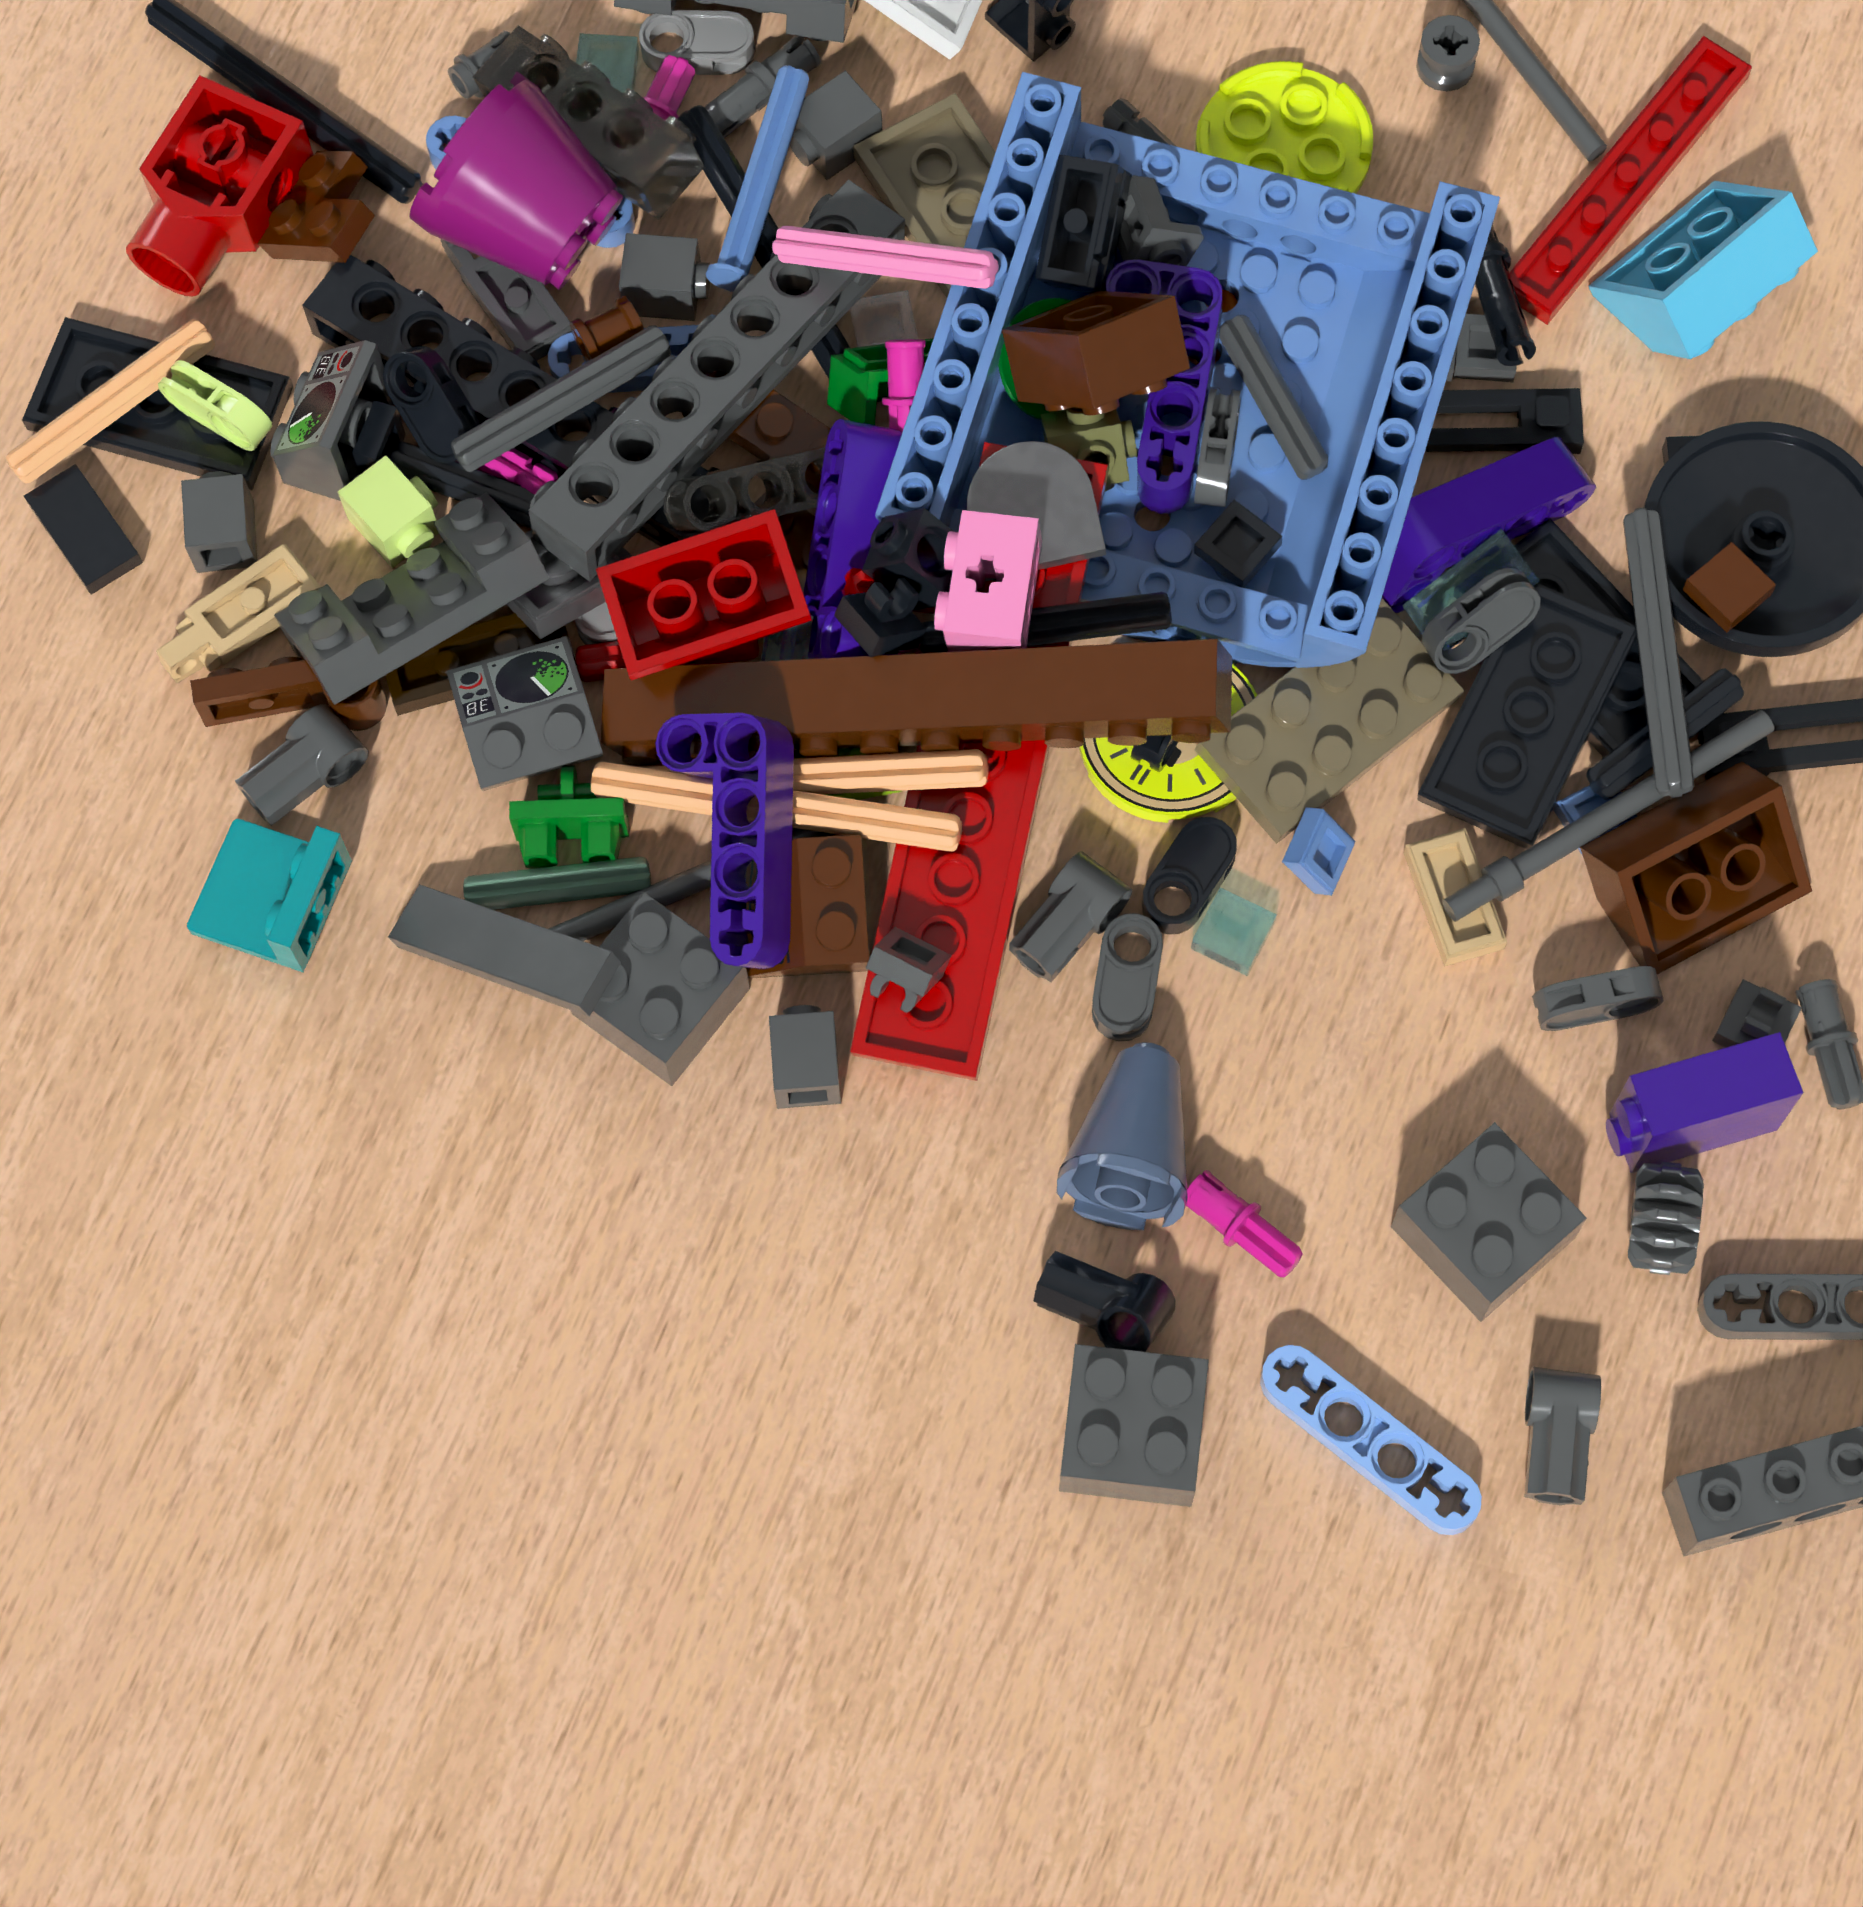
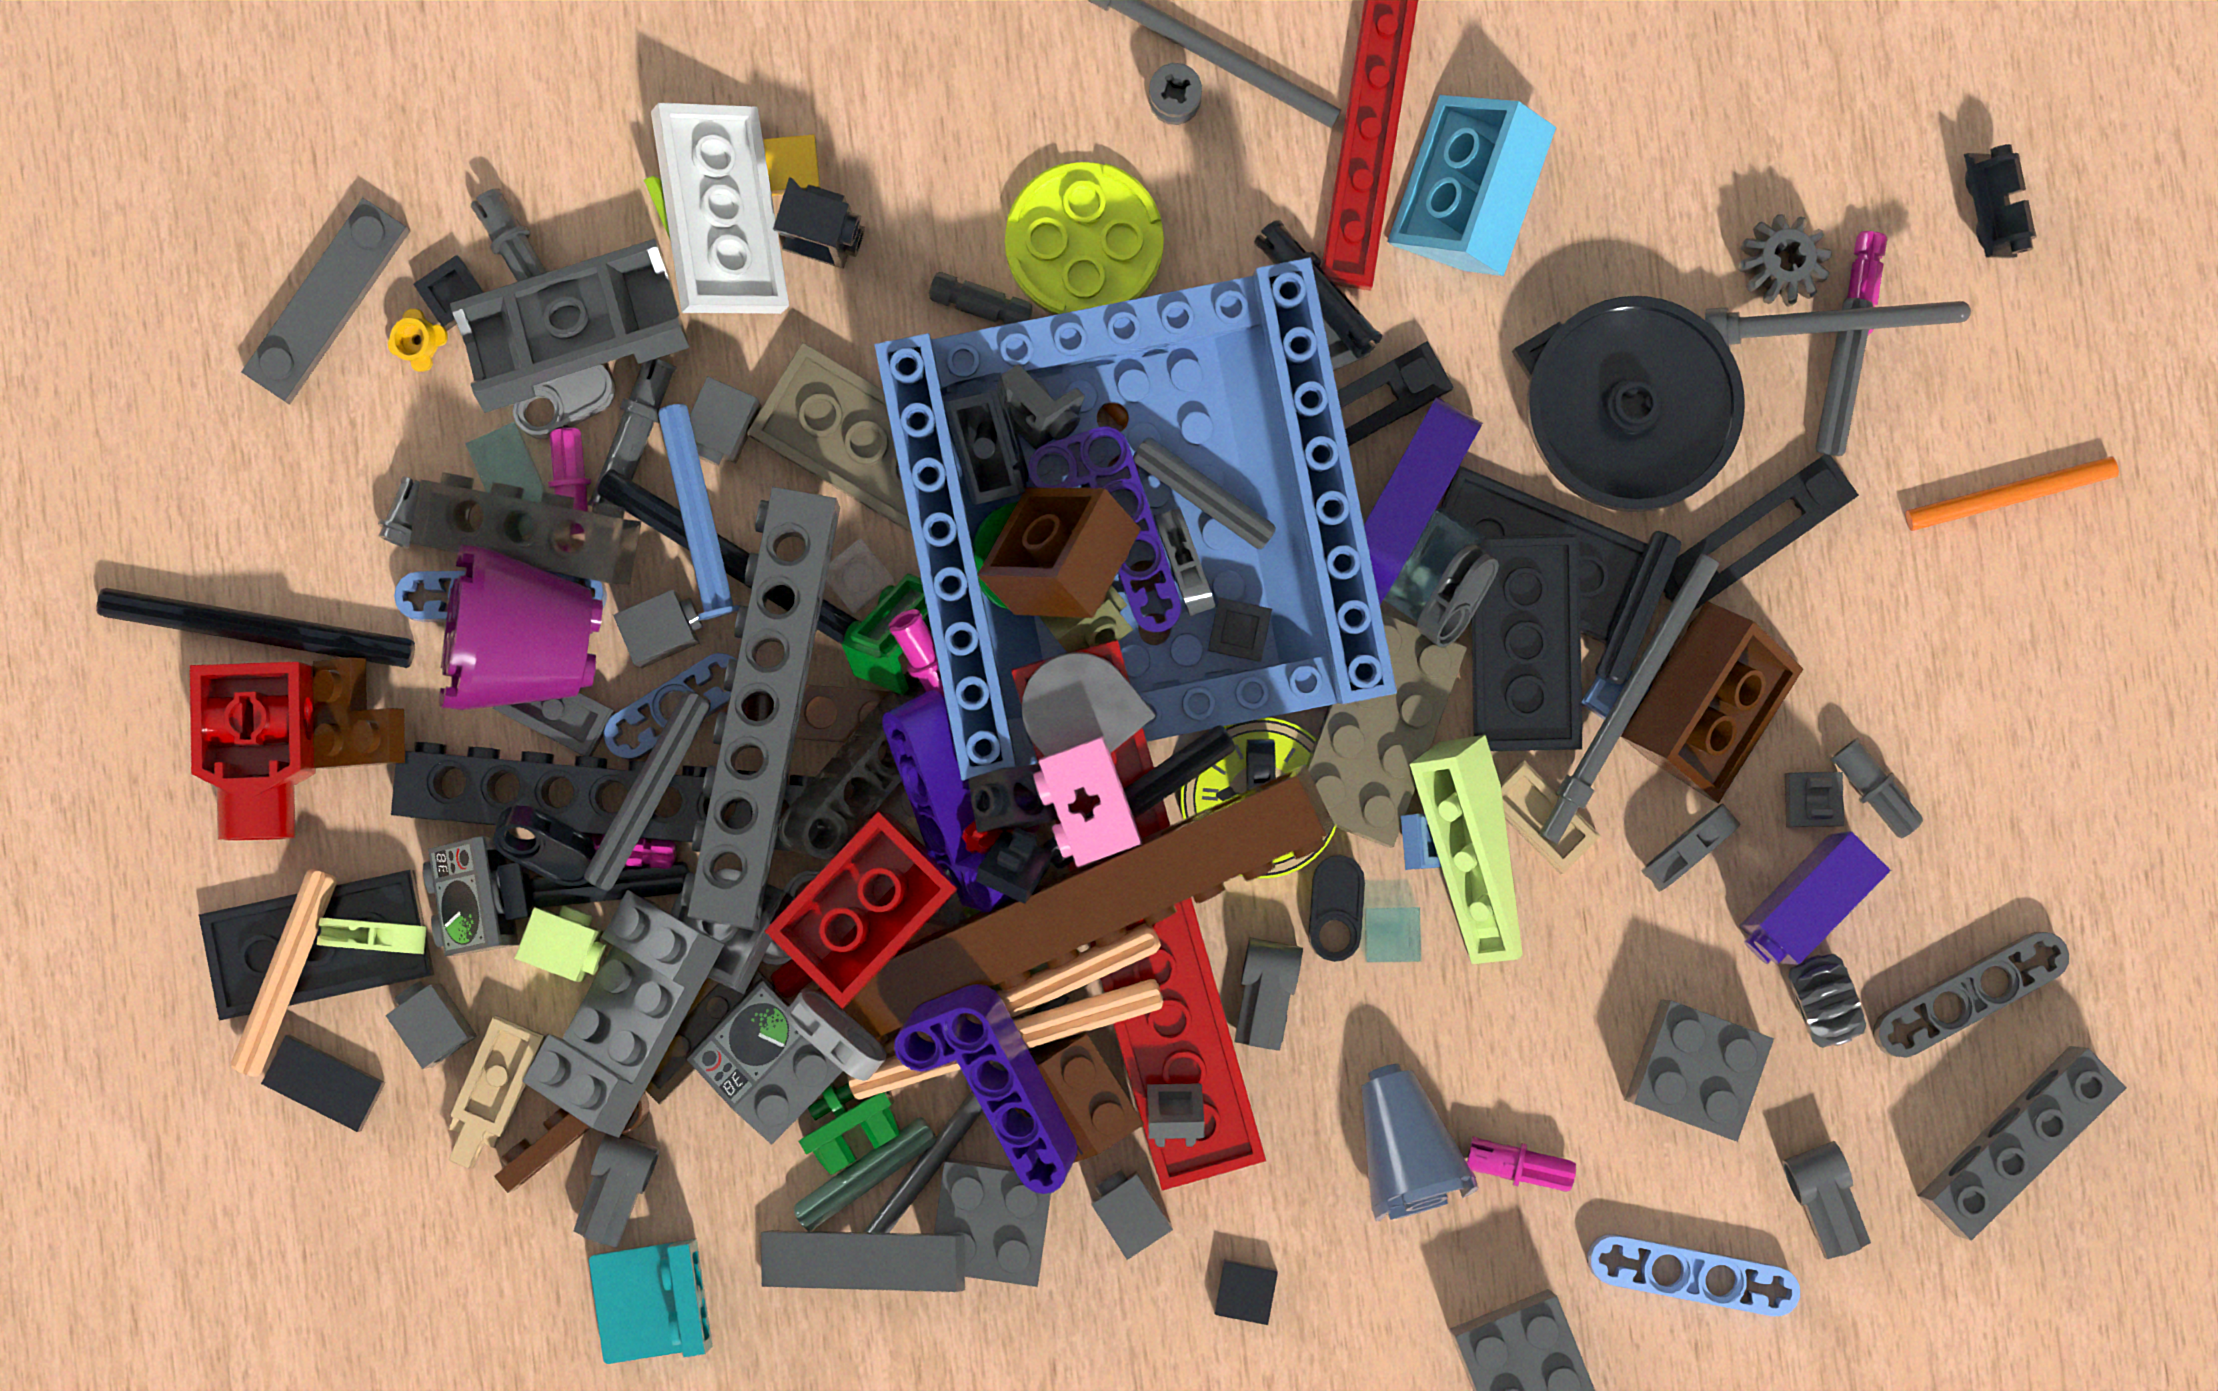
camera: 30 degrees left, 15 degrees up
(606, 329) = (648, 708): reddish brown bush -> none
(607, 707) = (835, 1034): none -> light grey piece
(879, 1206) = (1246, 1292): none -> black tile
(886, 256) = (851, 560): bright pink axle -> none
(1121, 1310) = (1470, 1281): black piece -> none
(1123, 988) = (1335, 1026): dark grey piece -> none
(1368, 863) = (1471, 840): none -> yellowish green slope
(1658, 653) = (1605, 551): dark grey axle -> none
(1729, 587) = (1632, 468): reddish brown tile -> none

